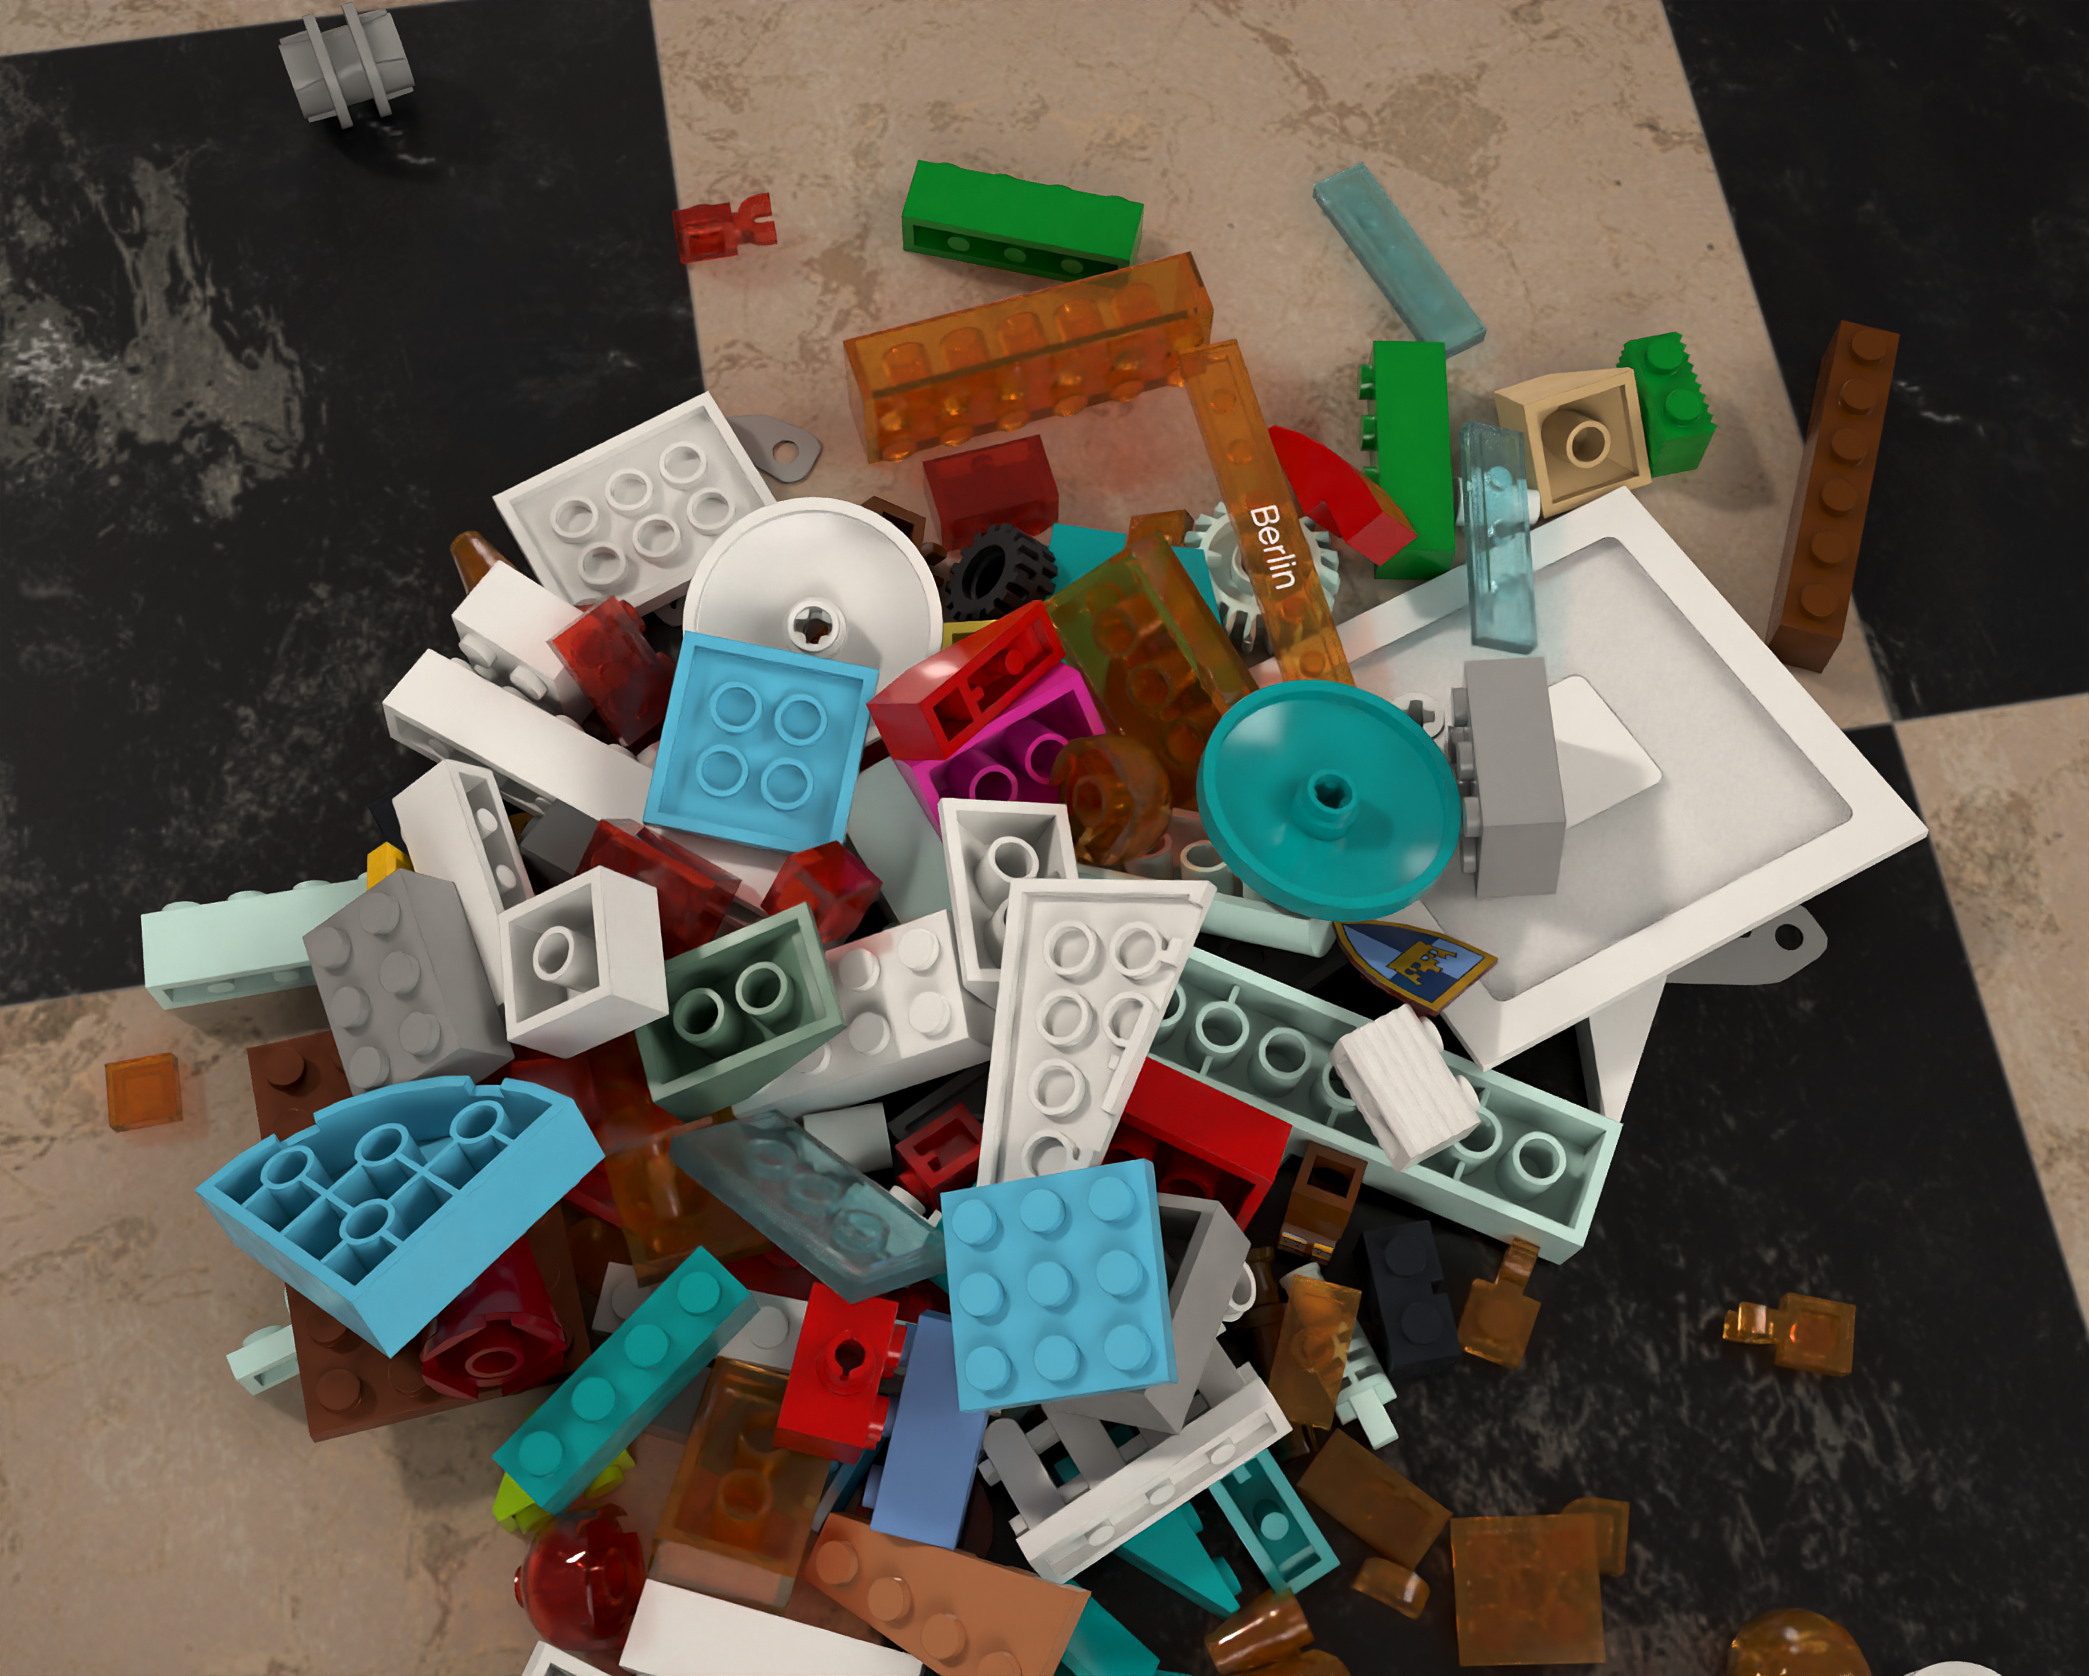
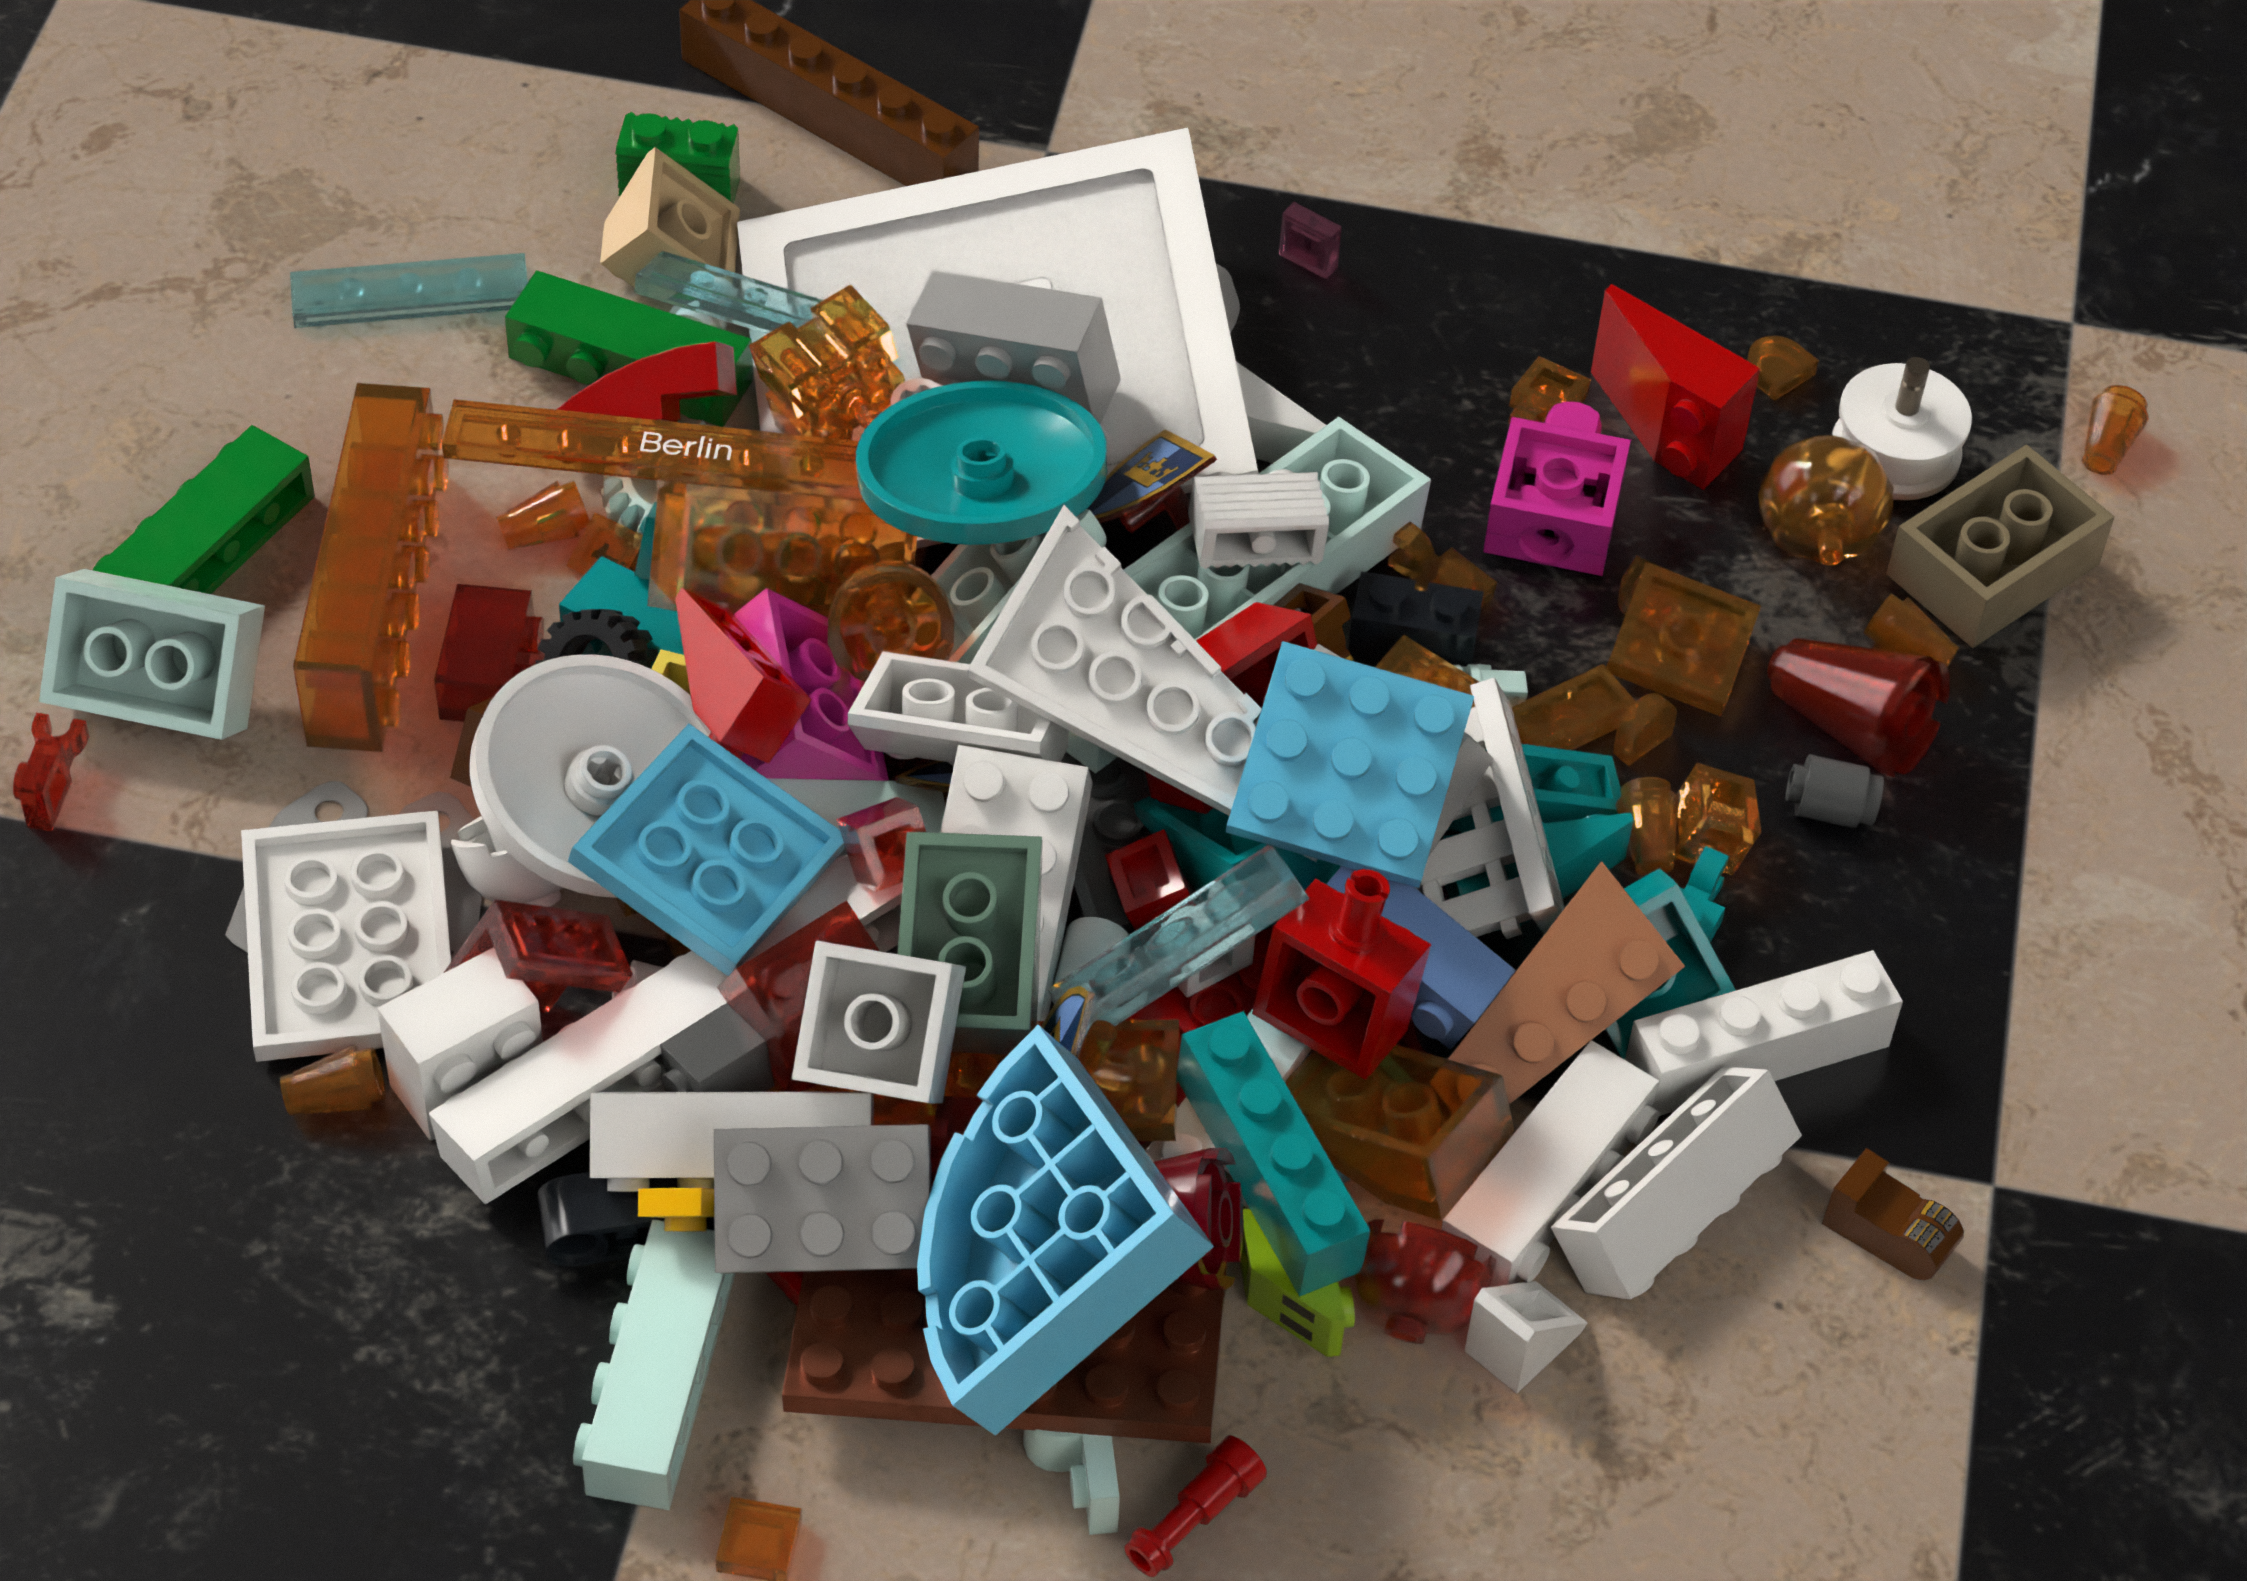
camera: 70 degrees left, 15 degrees down
(324, 1473) = (1230, 1473): none -> red piece
(848, 240) = (151, 653): none -> light aqua brick
(1176, 476) = (545, 517): none -> clear orange cone
(1415, 626) = (829, 370): none -> clear orange brick
(1667, 1386) = (1558, 480): none -> dark pink brick
(1861, 1485) = (1673, 387): none -> red slope
(1894, 1014) = (1310, 240): none -> clear pink tile
(2001, 1576) = (1782, 364): none -> clear orange tile

